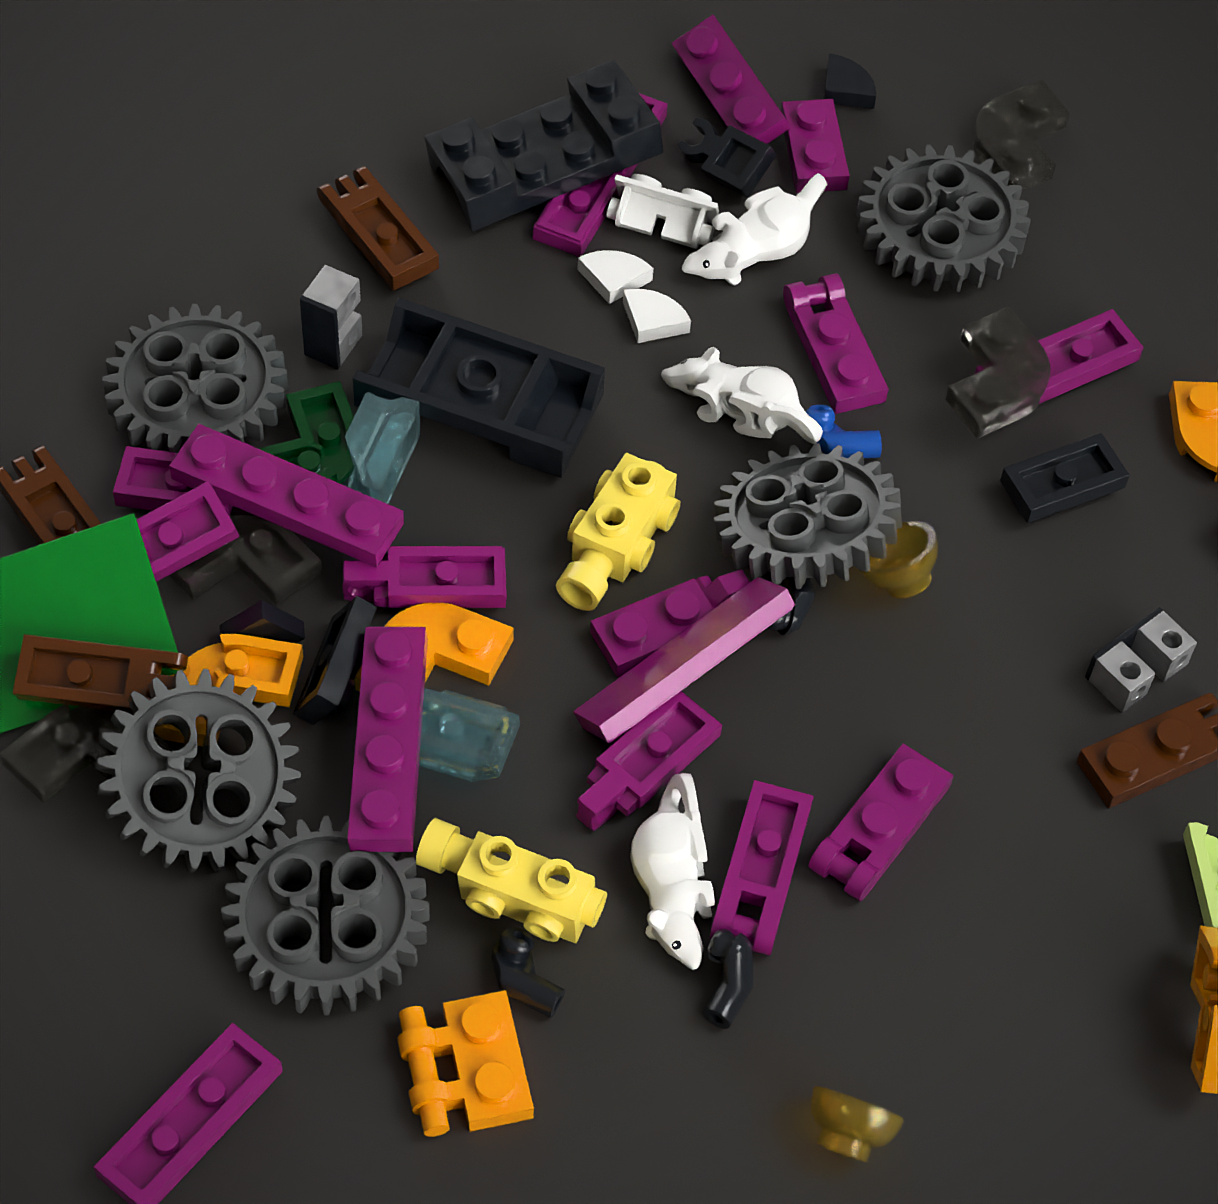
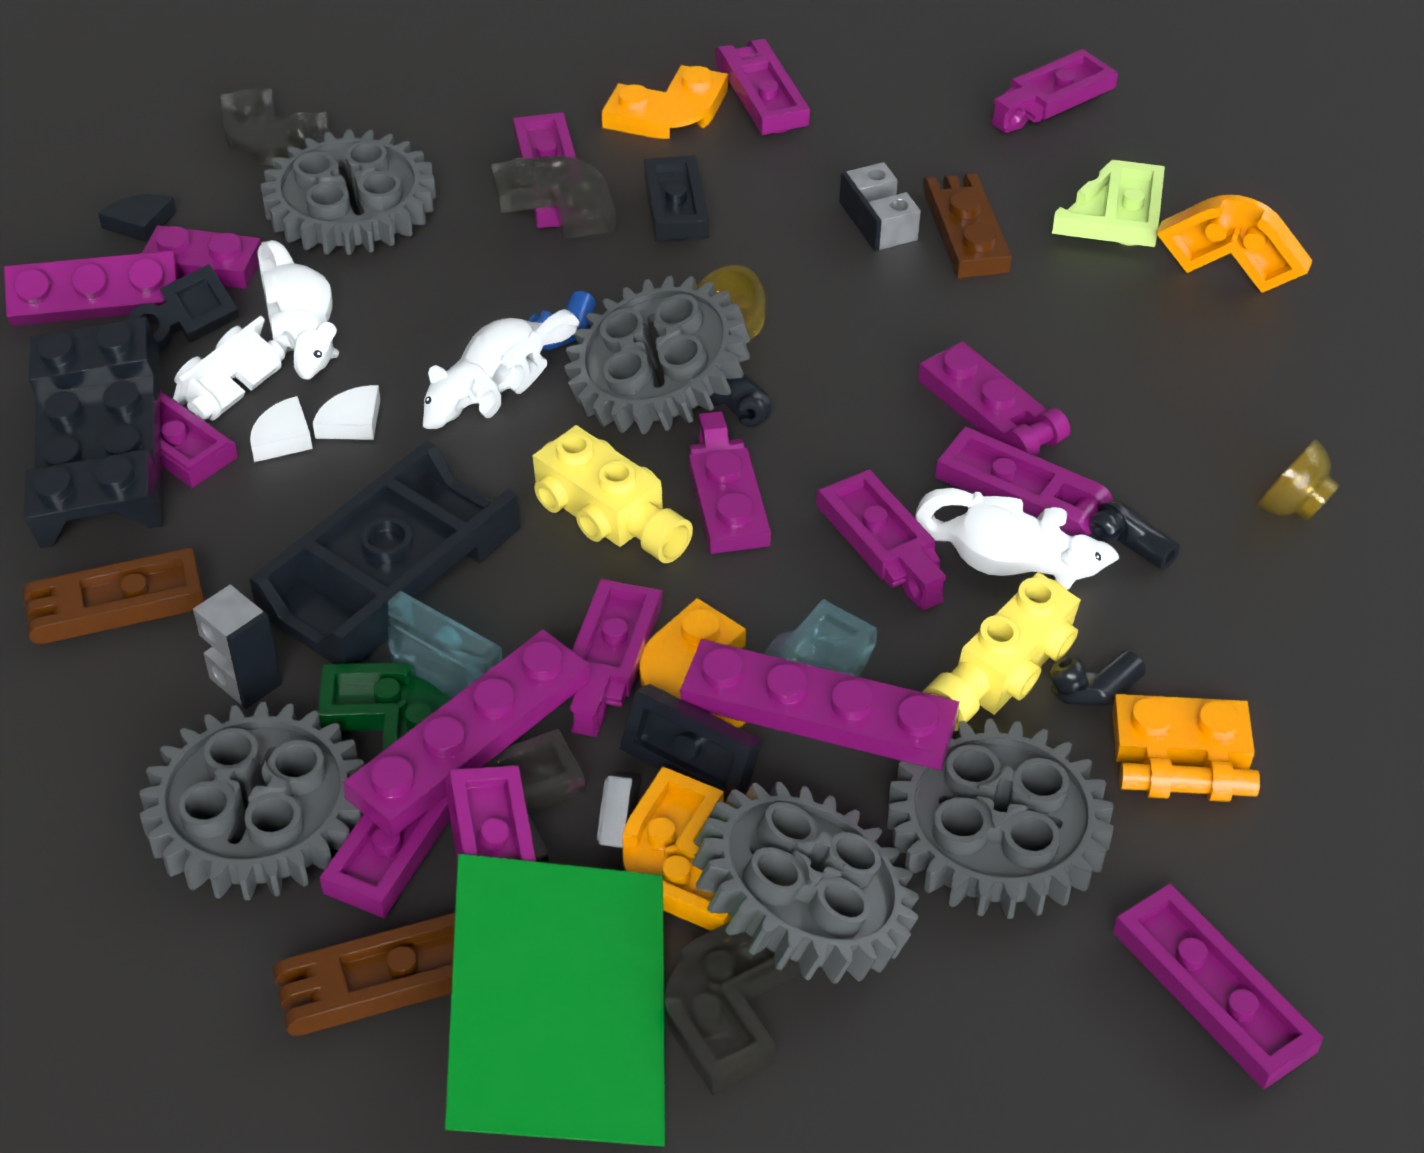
camera: 70 degrees left, 10 degrees down
(89, 672) = (649, 954): reddish brown hinge -> none
(684, 659) = (791, 476): magenta tile -> none
(835, 344) = (446, 300): magenta plate -> none

